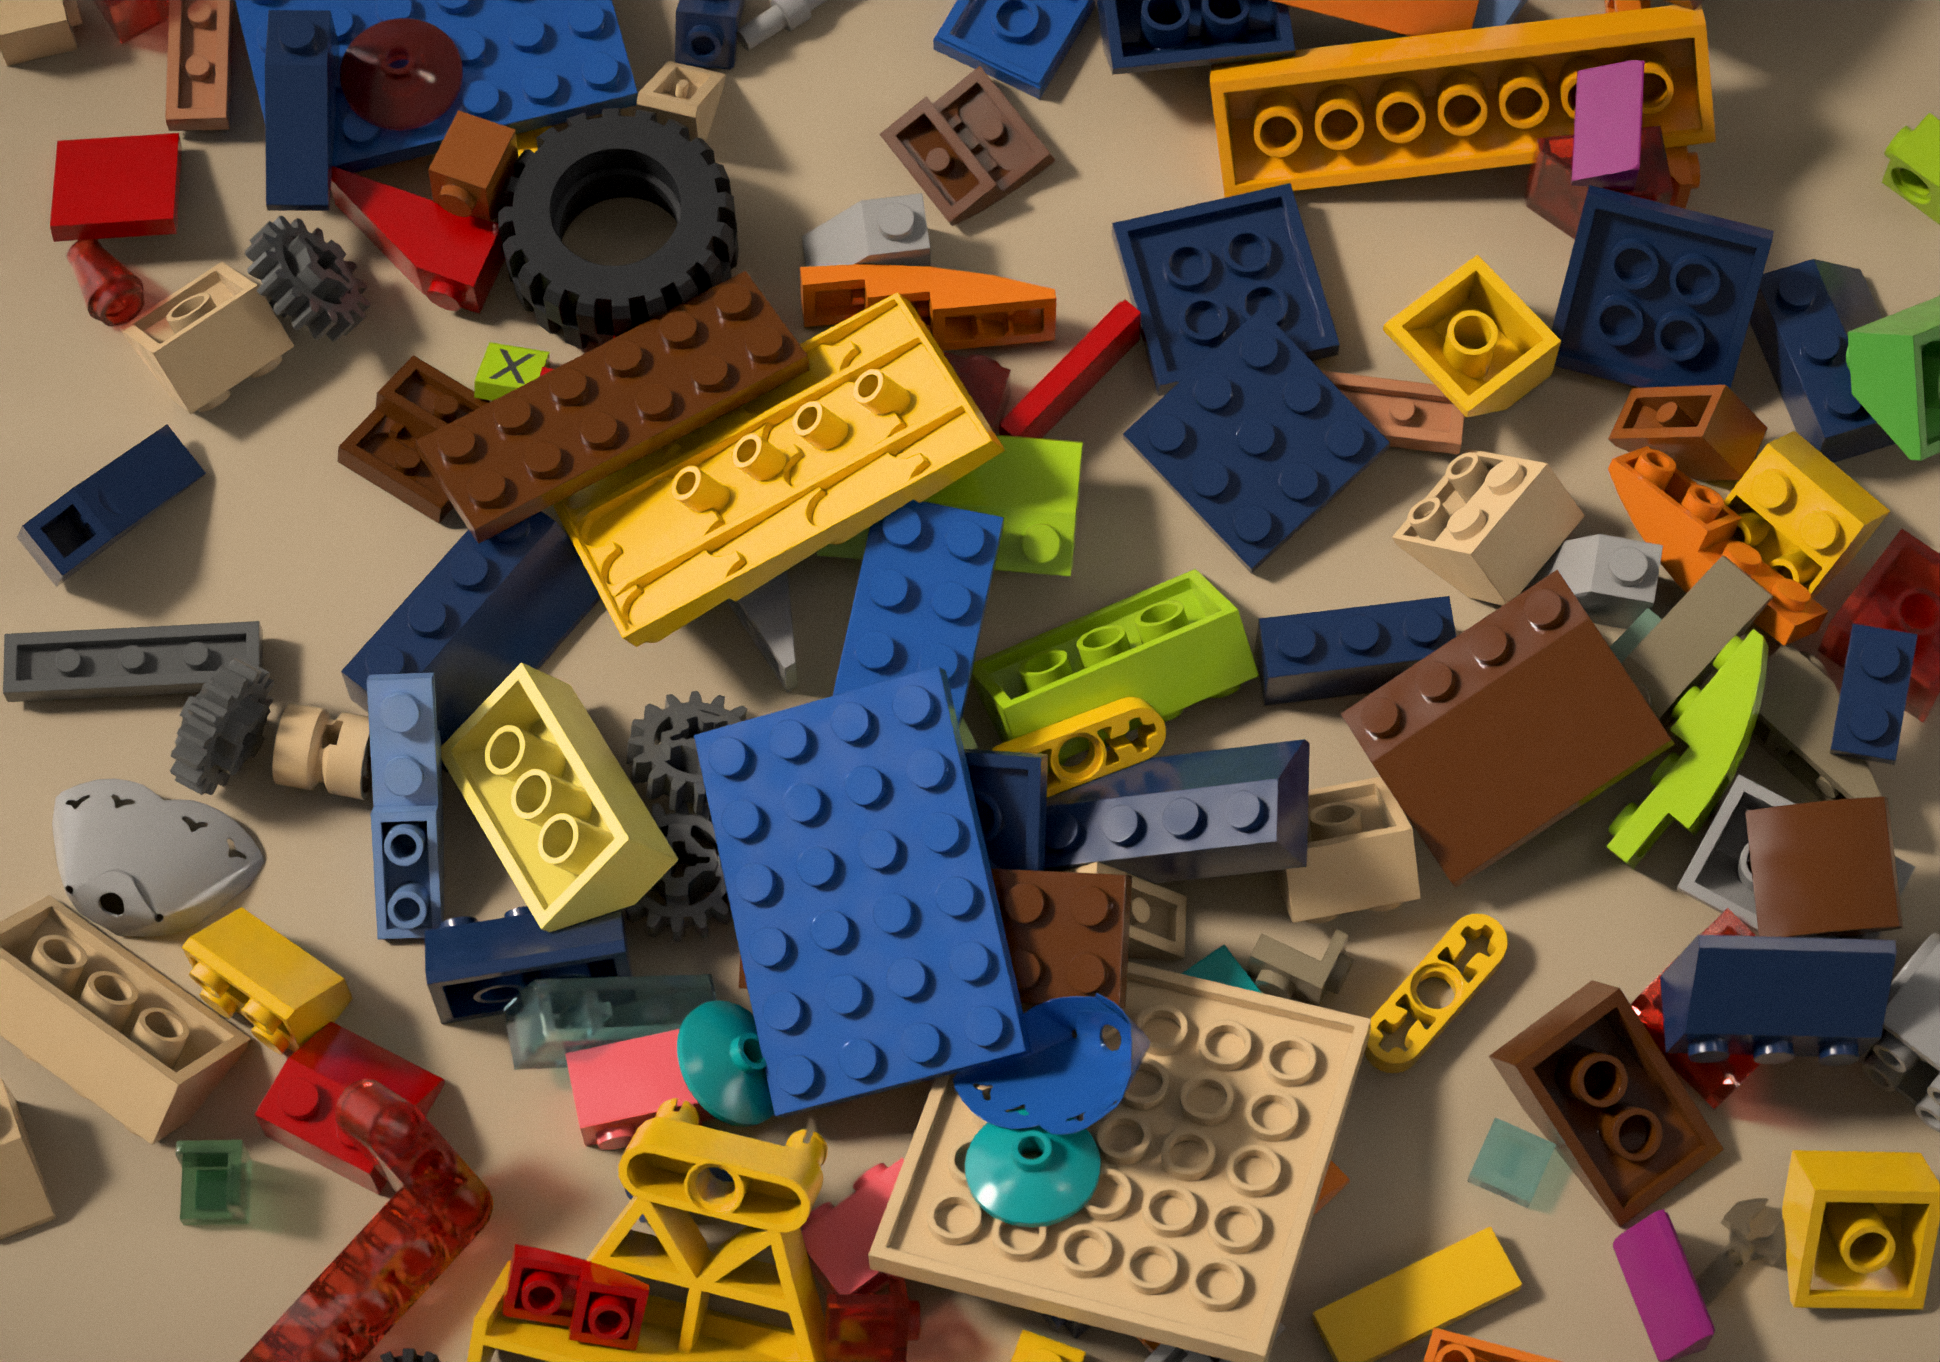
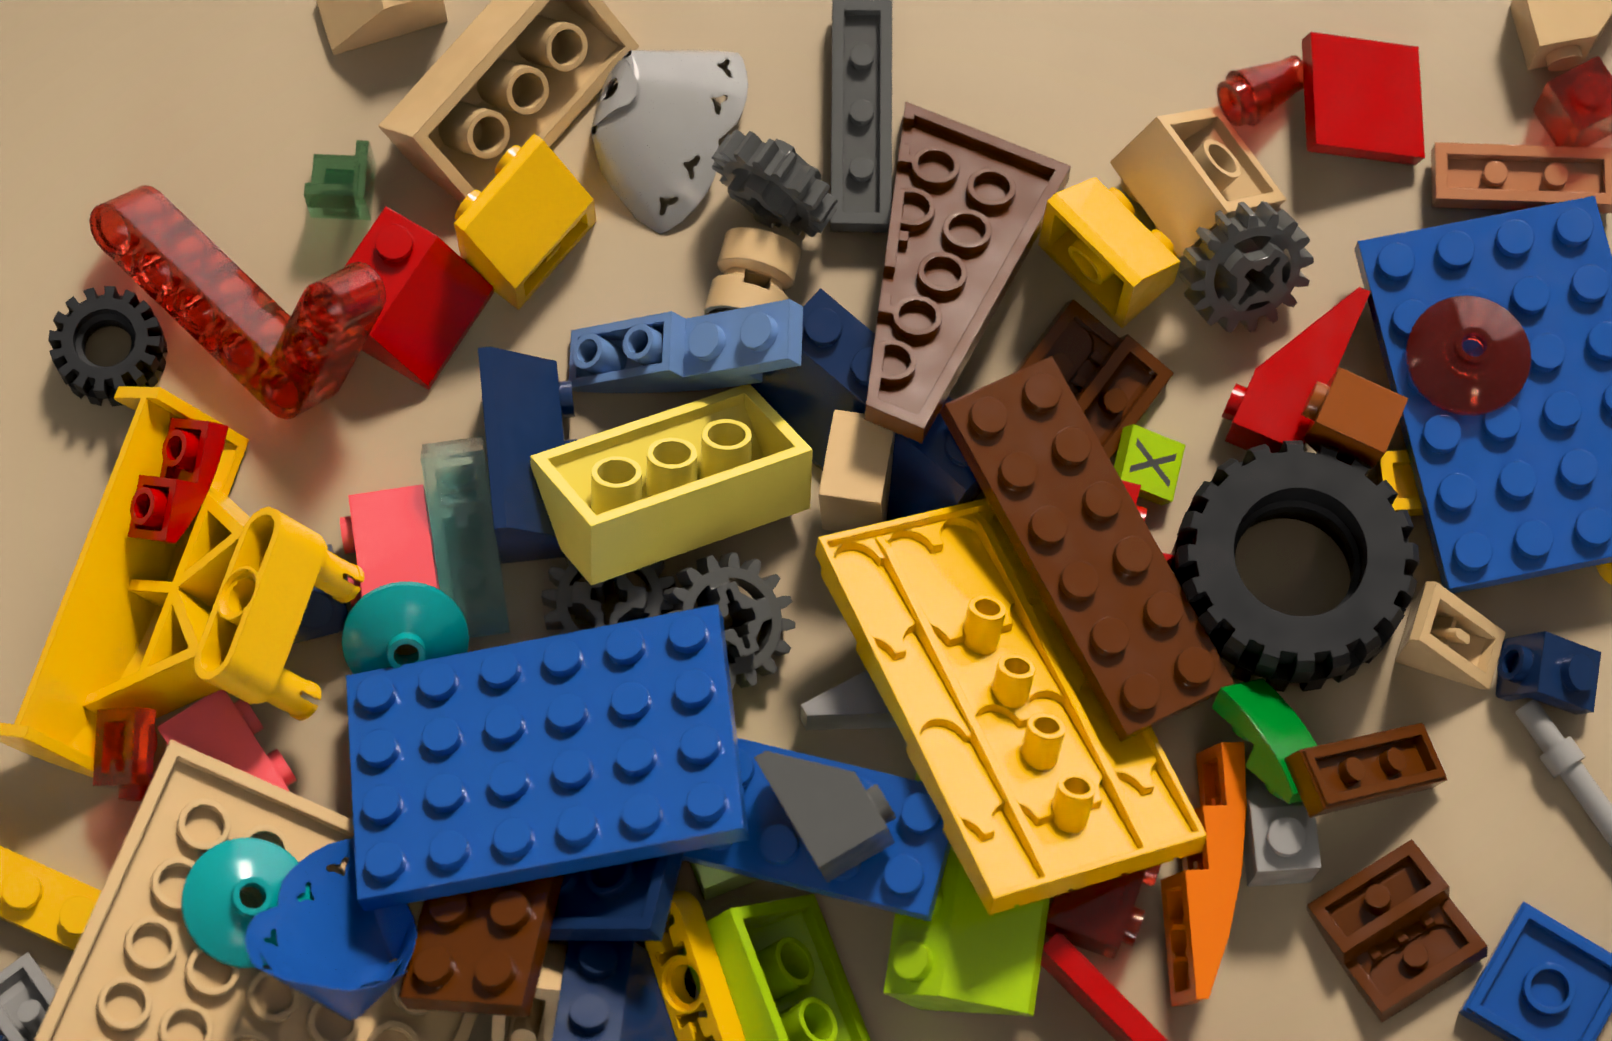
camera: 90 degrees right, 5 degrees up
(109, 504) = (1018, 88): dark blue slope -> none
(285, 548) = (954, 244): none -> wing
(288, 412) = (1108, 249): none -> yellow slope
(300, 109) = (1421, 253): dark blue slope -> none
(537, 628) = (855, 473): none -> tan slope
(819, 220) = (1273, 727): none -> green slope
(822, 159) = (1365, 769): none -> reddish brown tile
(911, 602) = (830, 811): none -> dark grey slope

